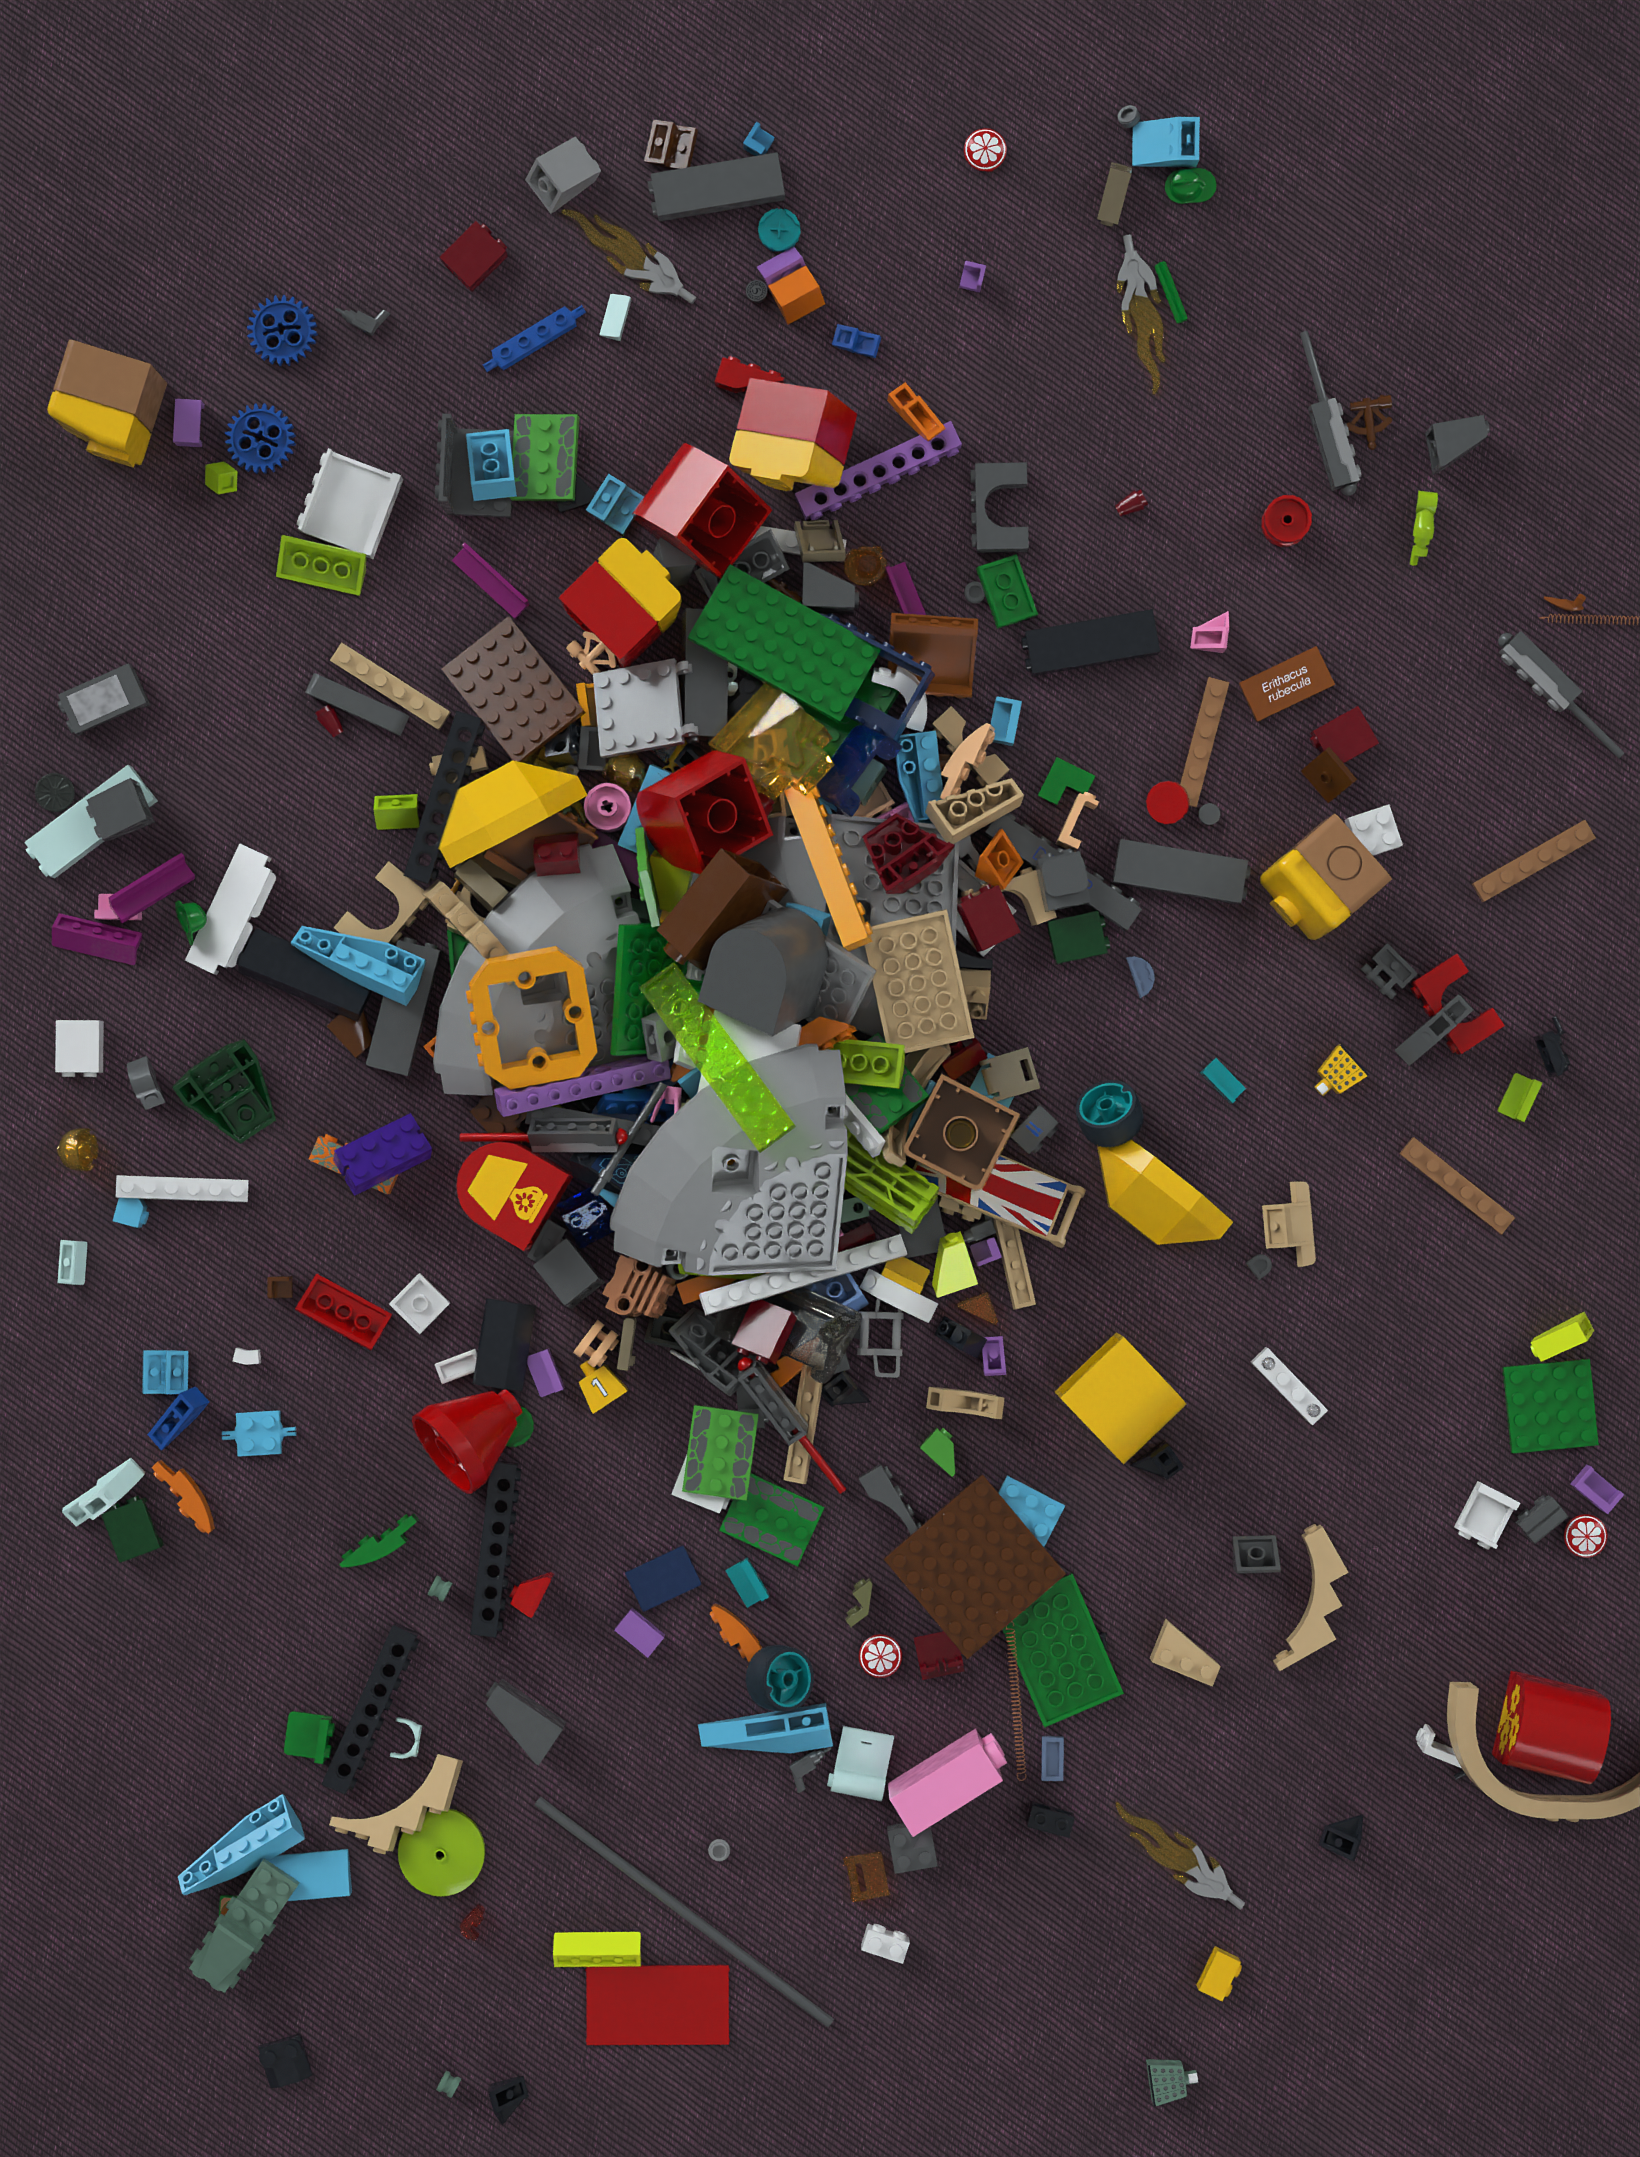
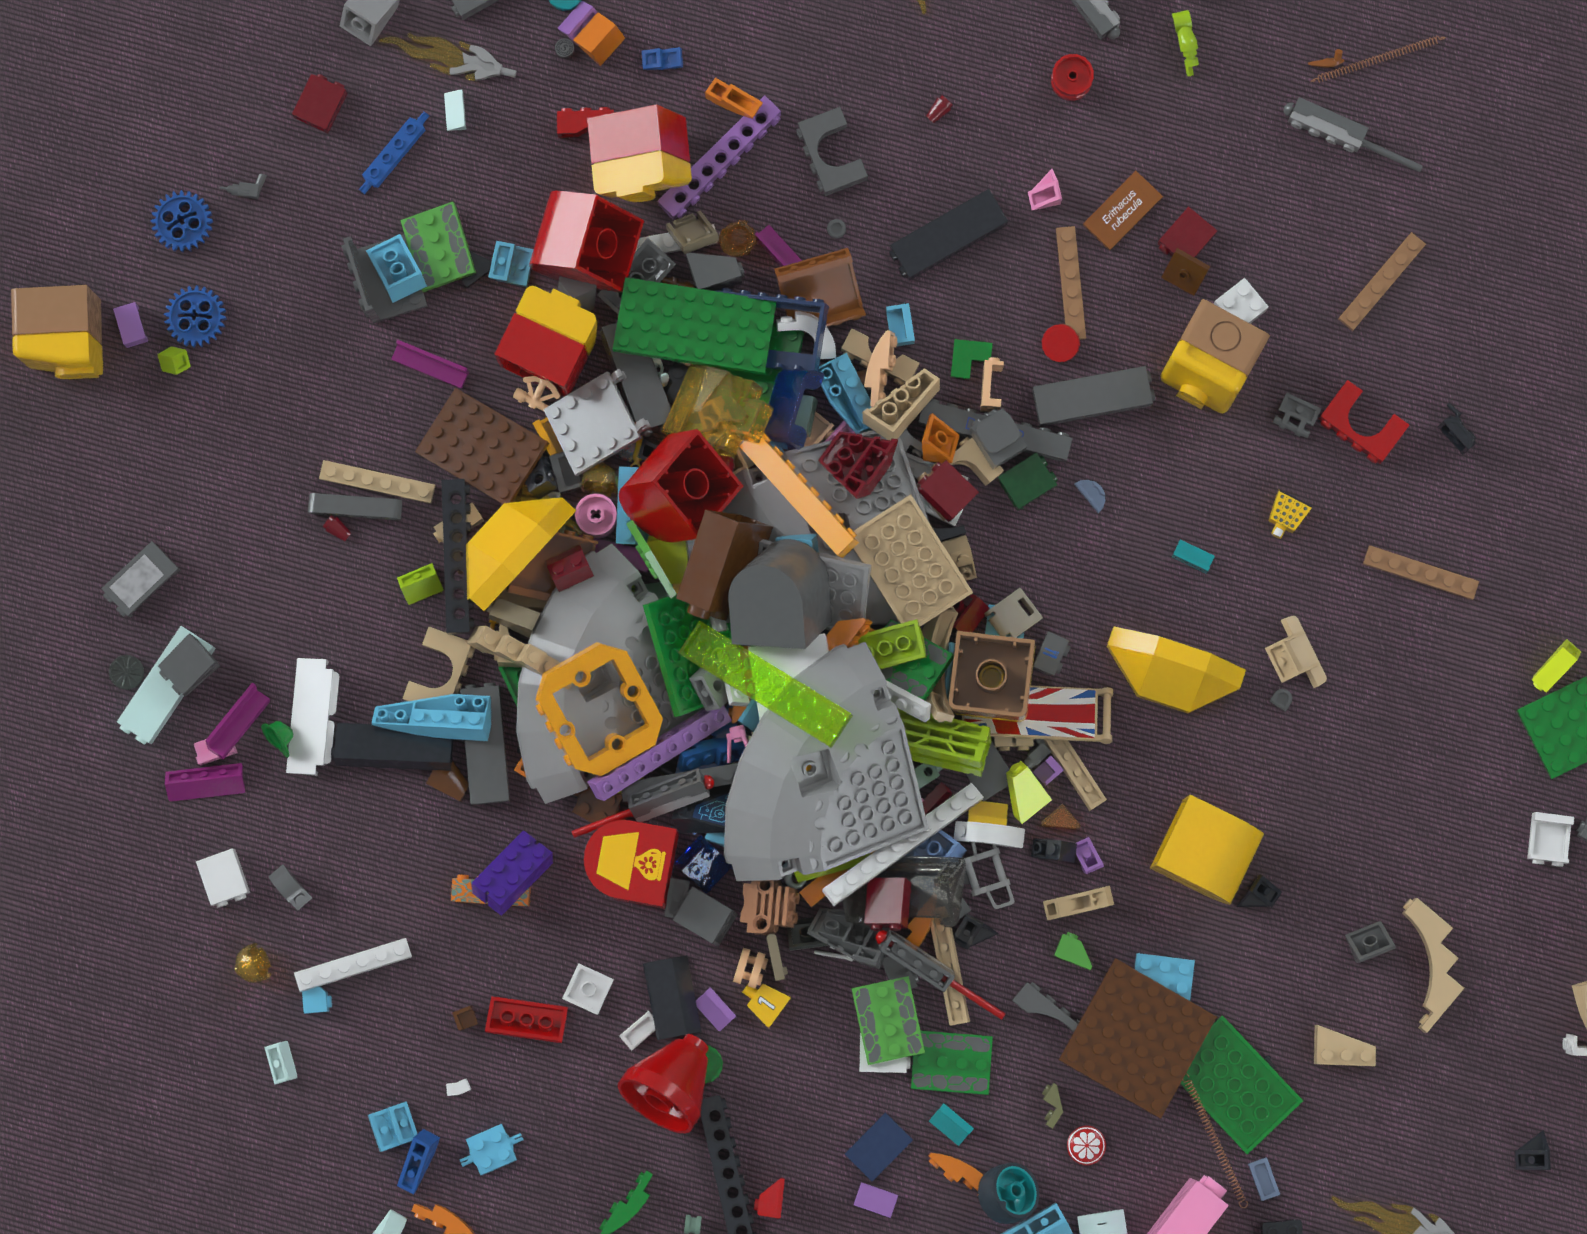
camera: 20 degrees left, 5 degrees down
(229, 1091) = (363, 868): dark green wedge -> none
(321, 565) = (283, 402): lime slope -> none
(349, 504) = (289, 343): white panel -> none
(606, 1174) = (707, 818): dark grey bar -> none
(937, 1655) = (1135, 1126): dark red hinge -> none
(1007, 591) = (862, 218): green tile -> none
(1109, 1113) = (1108, 616): wheel -> none
(1209, 814) = (1098, 340): dark grey tile -> none
(1289, 1386) = (1344, 790): white piece -> none
(1434, 1029) = (1352, 449): dark grey slope -> none
(1519, 1097) = (1444, 480): lime panel -> none

